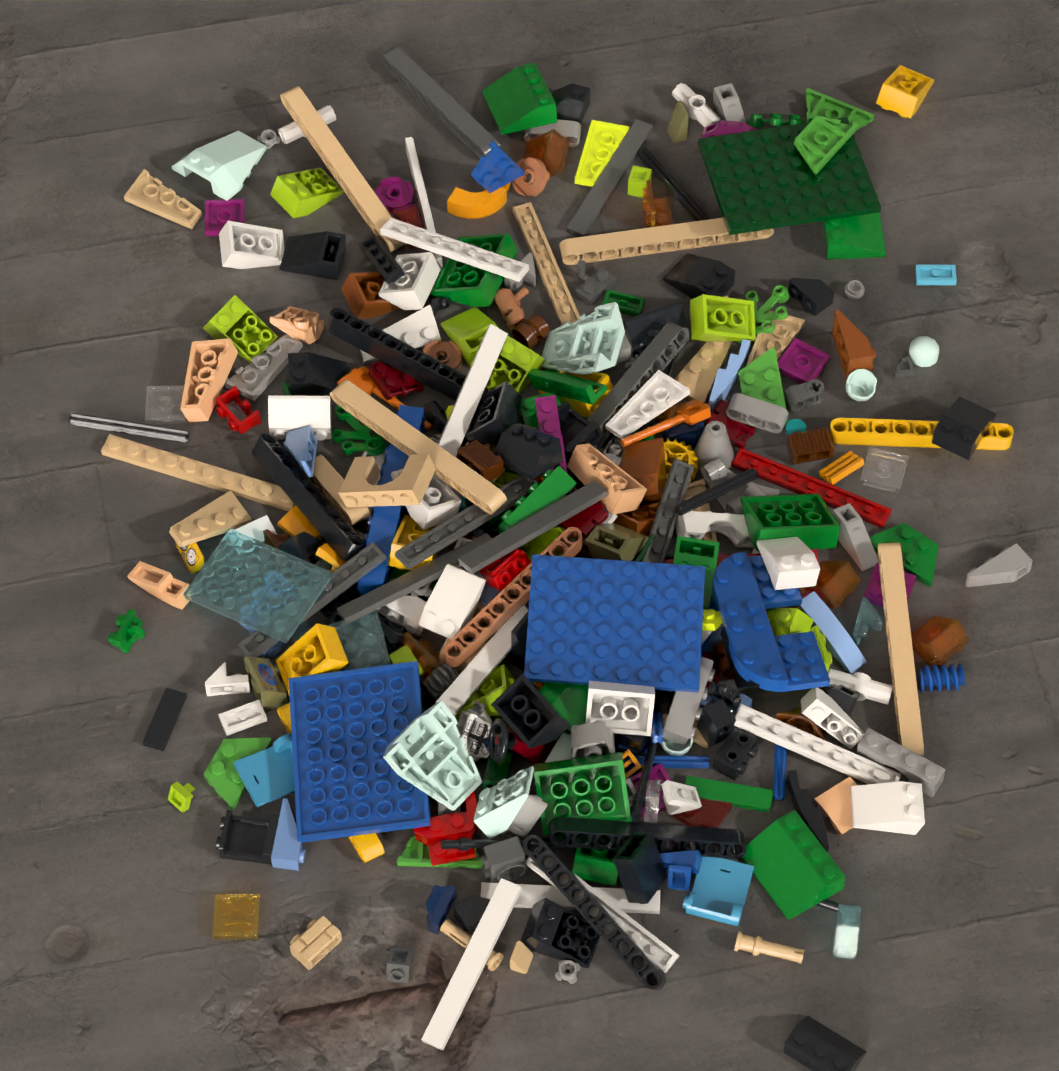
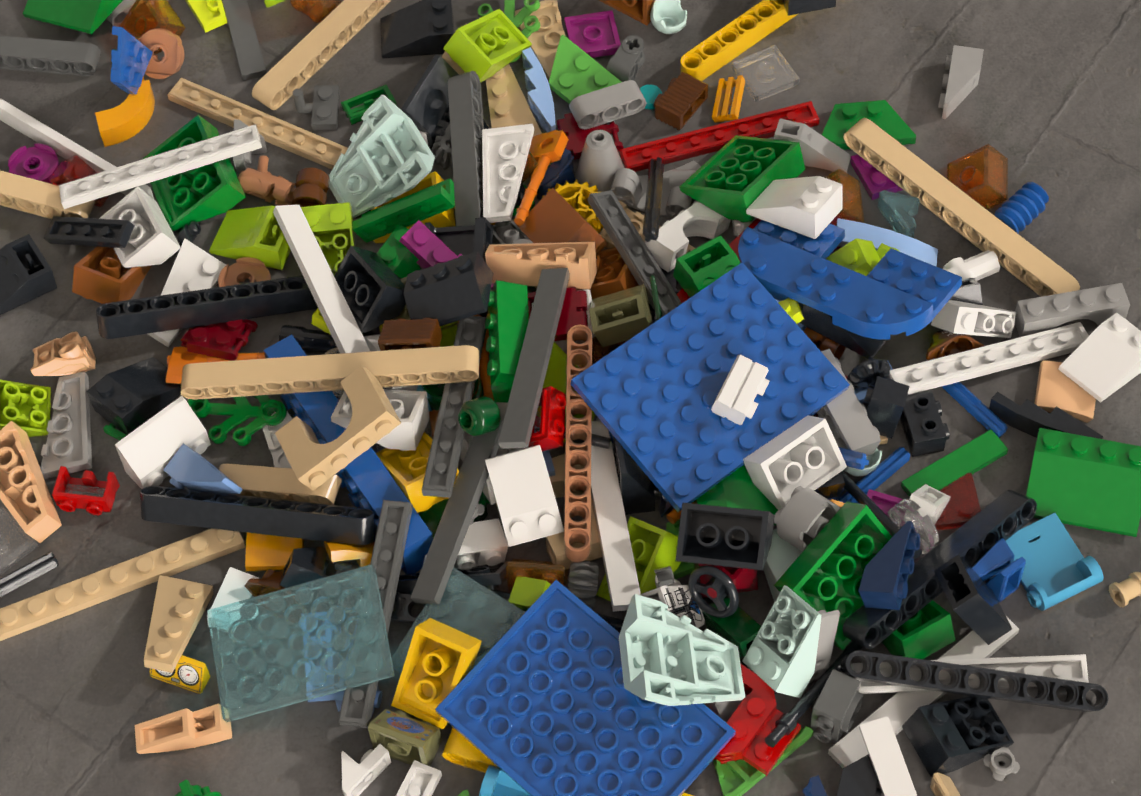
camera: 40 degrees left, 0 degrees up
(467, 535) = (479, 416): none -> dark green head
(604, 809) = (887, 573): none -> dark blue slope
(621, 638) = (740, 389): none -> white brick

